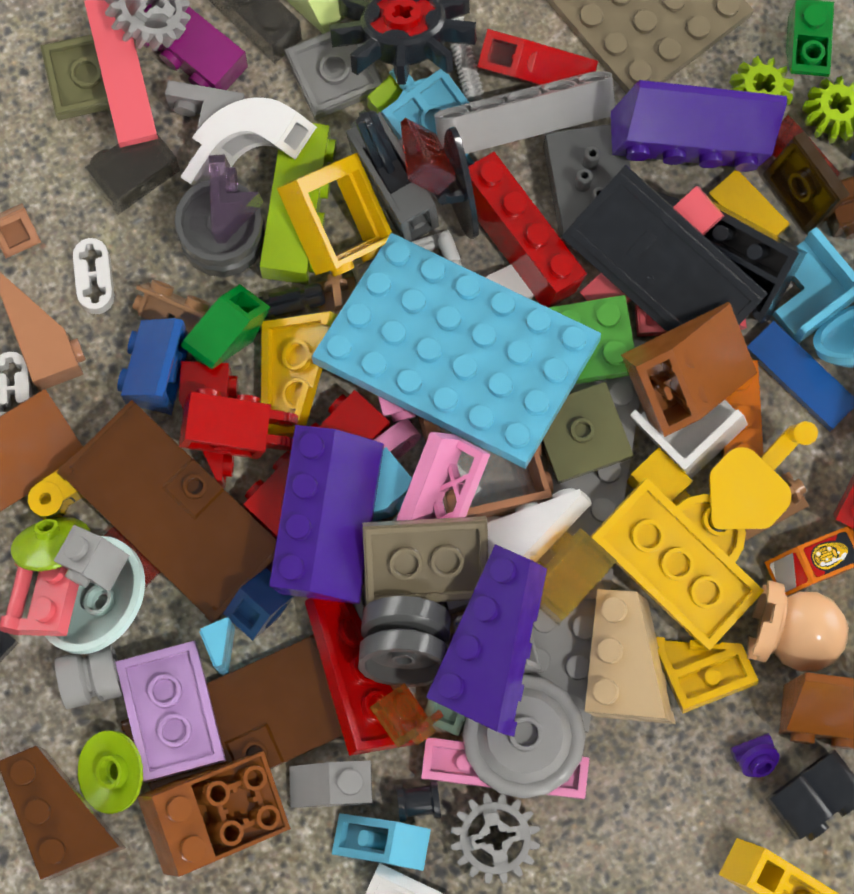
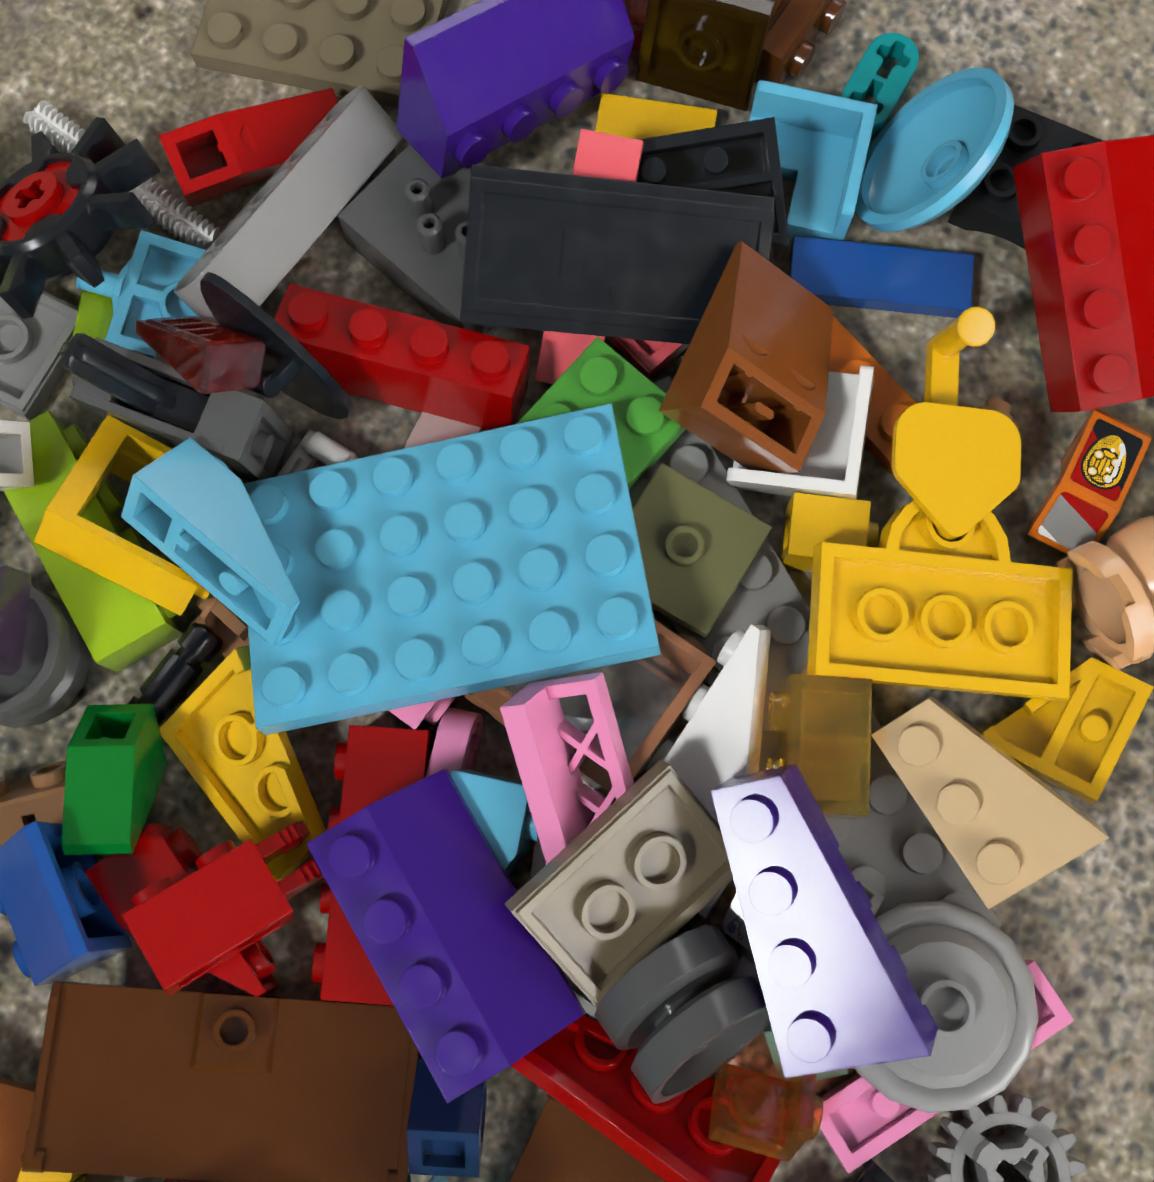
camera: 35 degrees left, 0 degrees up
(363, 246) = (211, 530): none -> medium azure slope

